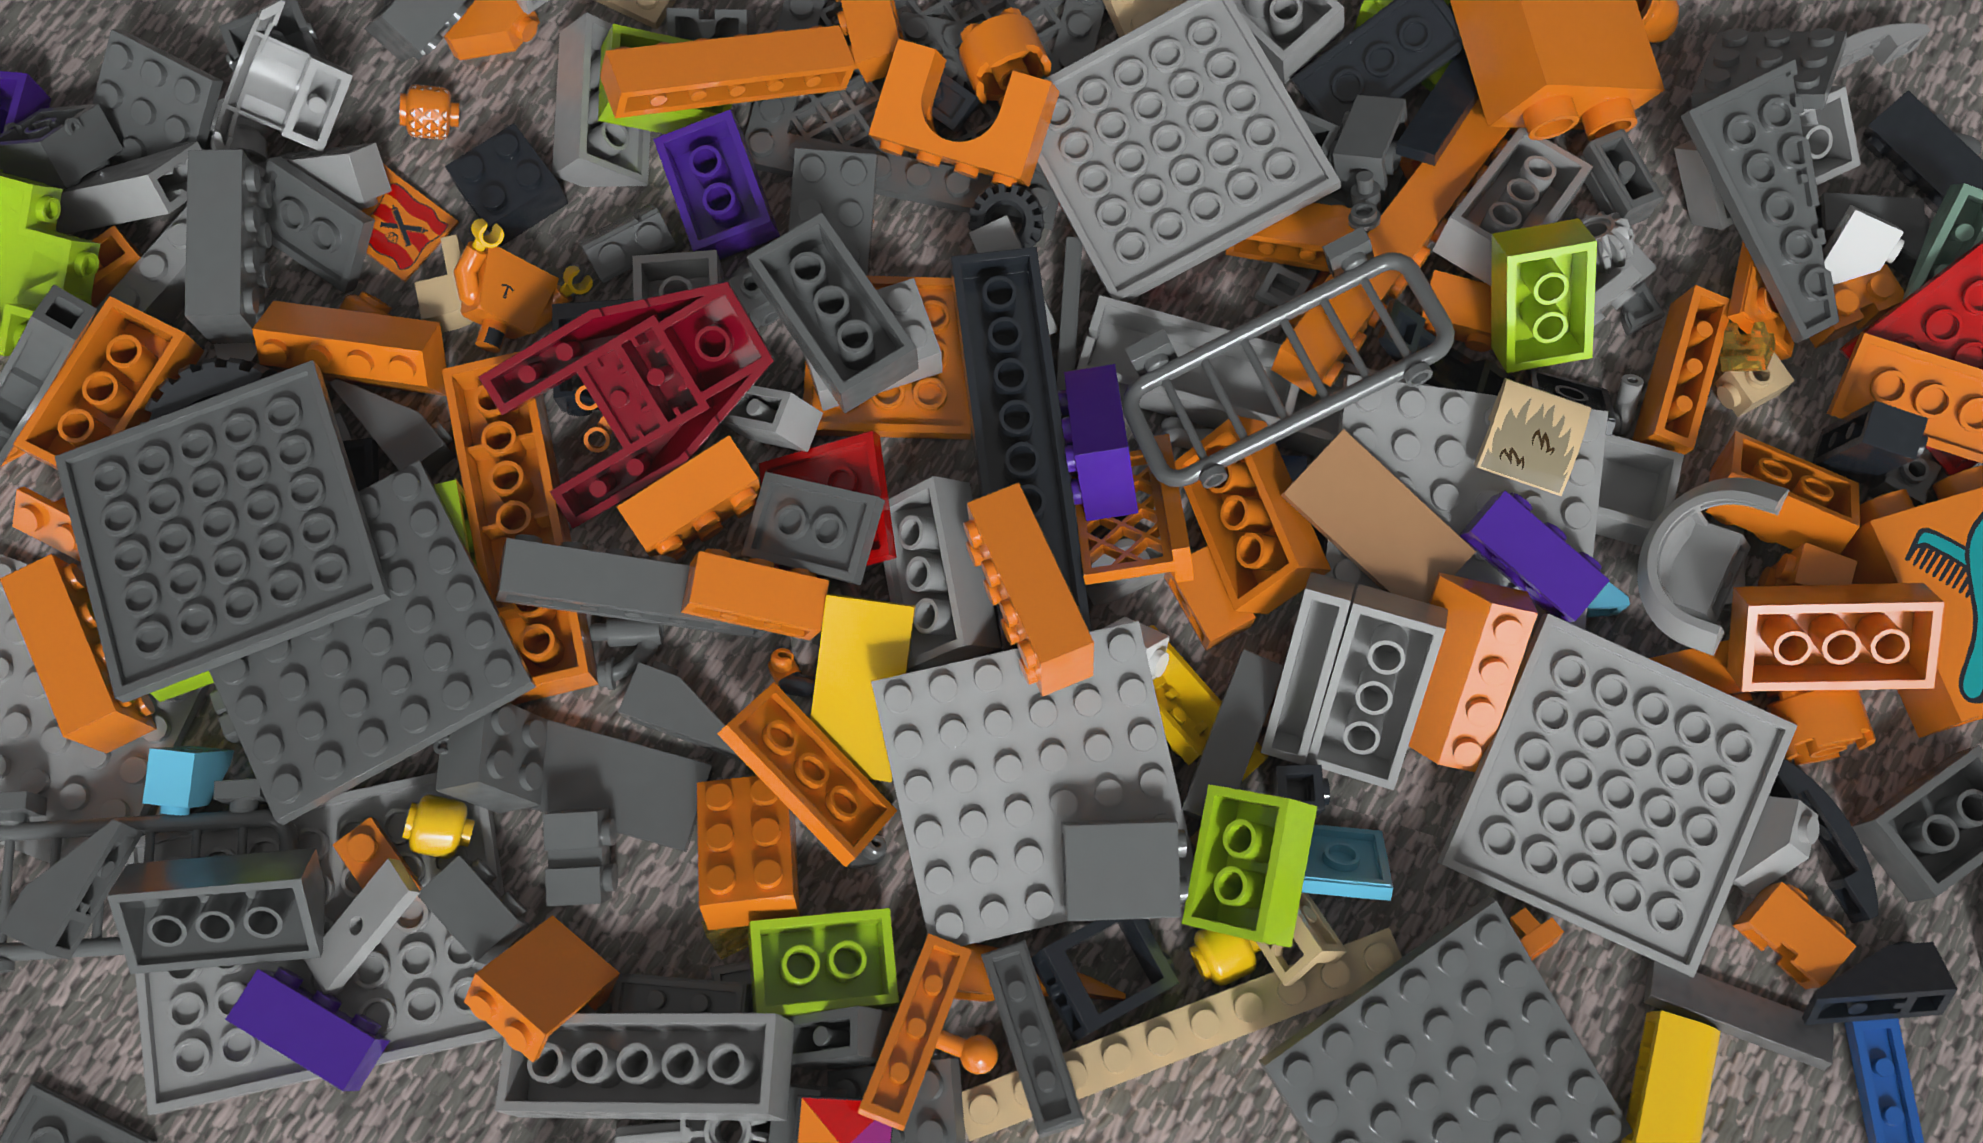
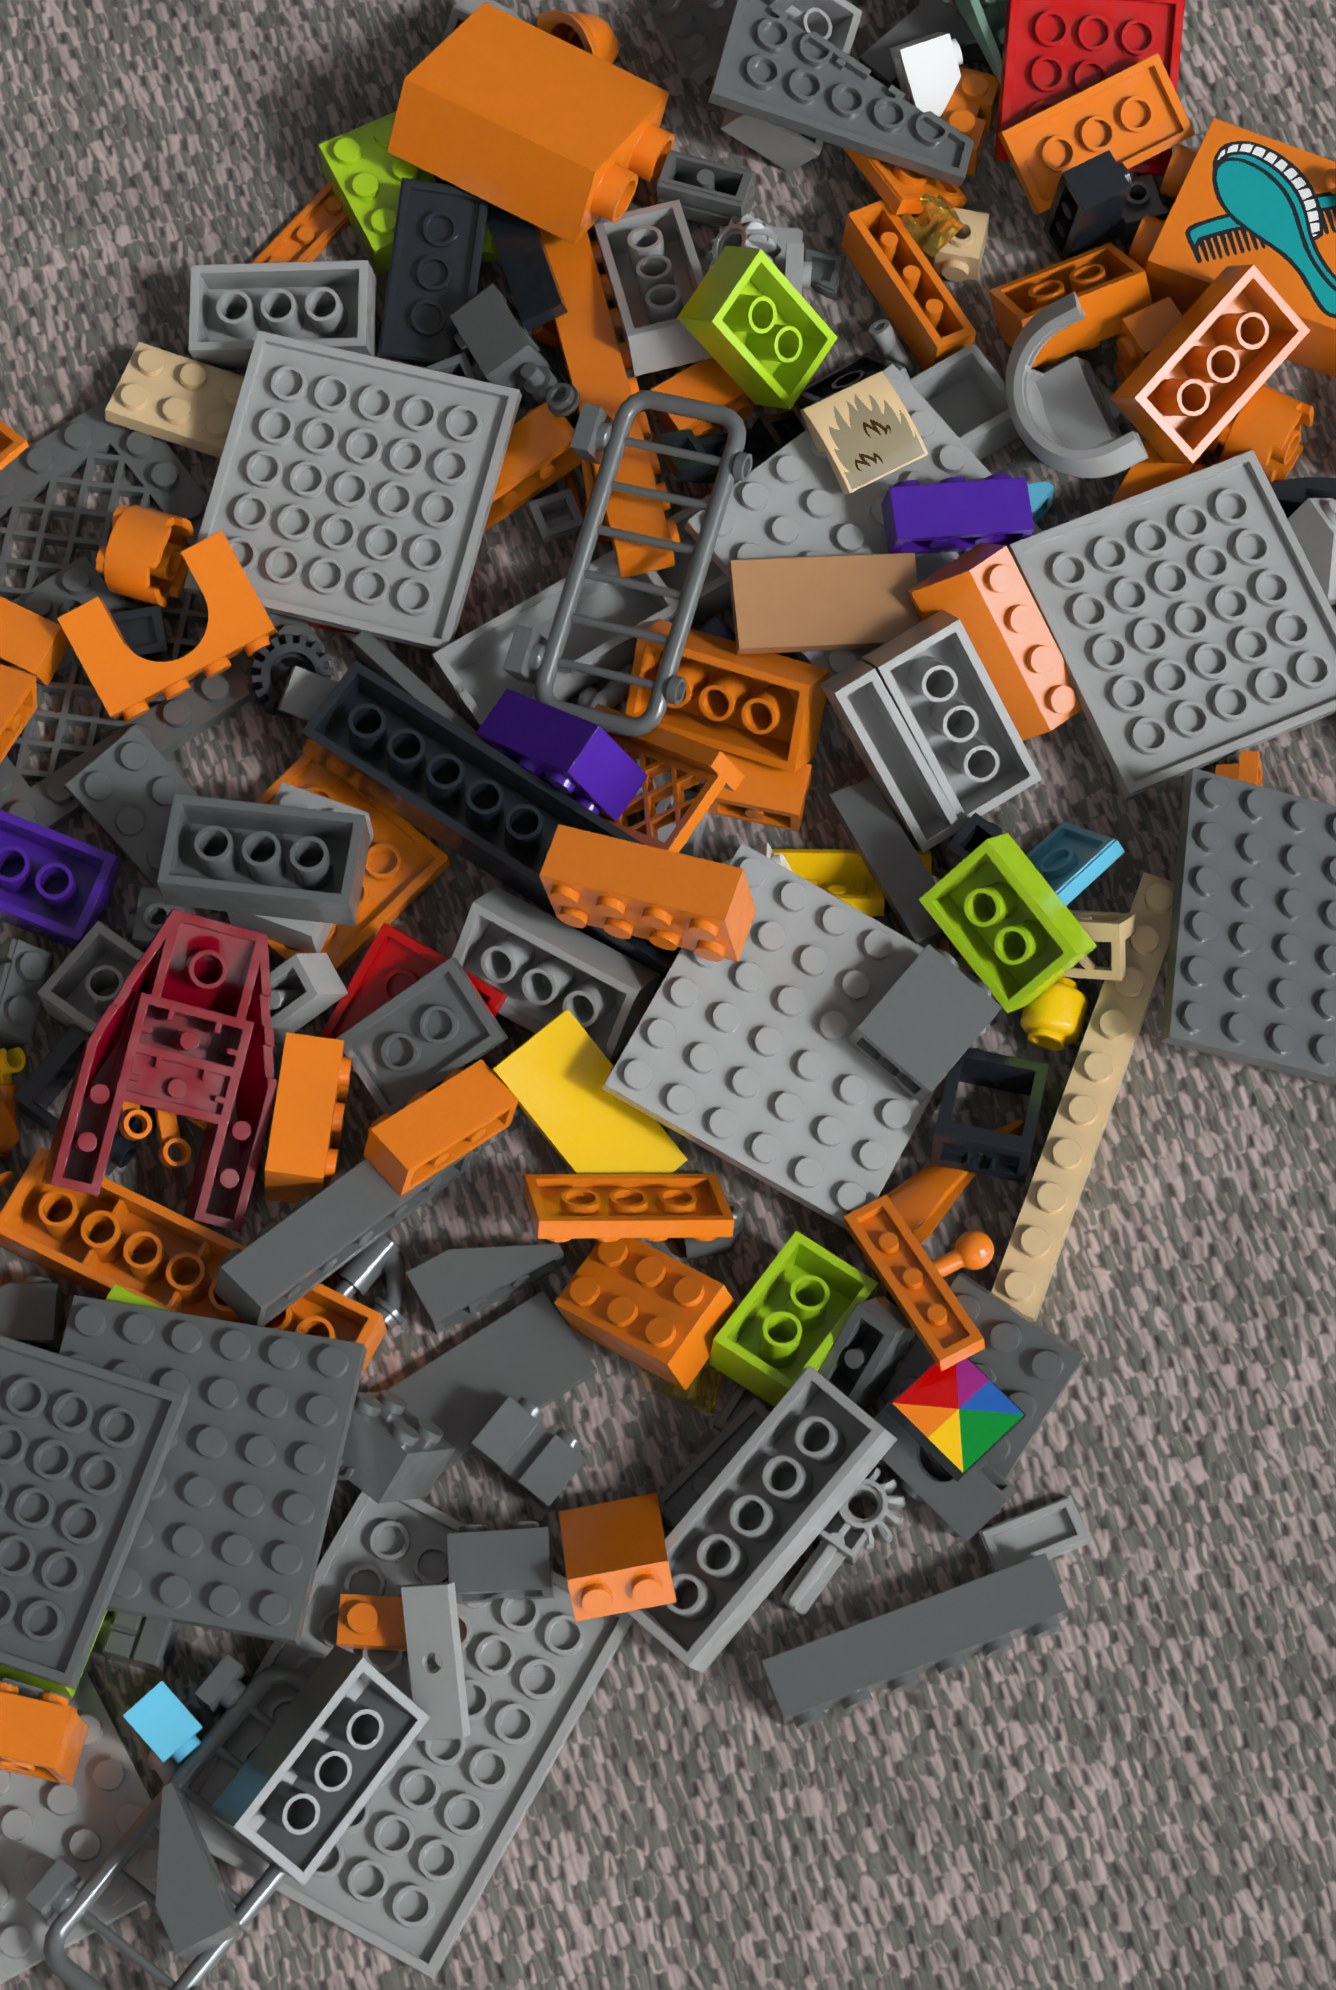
camera: 45 degrees left, 5 degrees down
(309, 1028) = (481, 1775): dark purple brick -> none
(438, 826) = (401, 1541): yellow head -> none
(788, 675) = (511, 1169): arm -> none
(1032, 1040) = (996, 1203): dark grey tile -> none

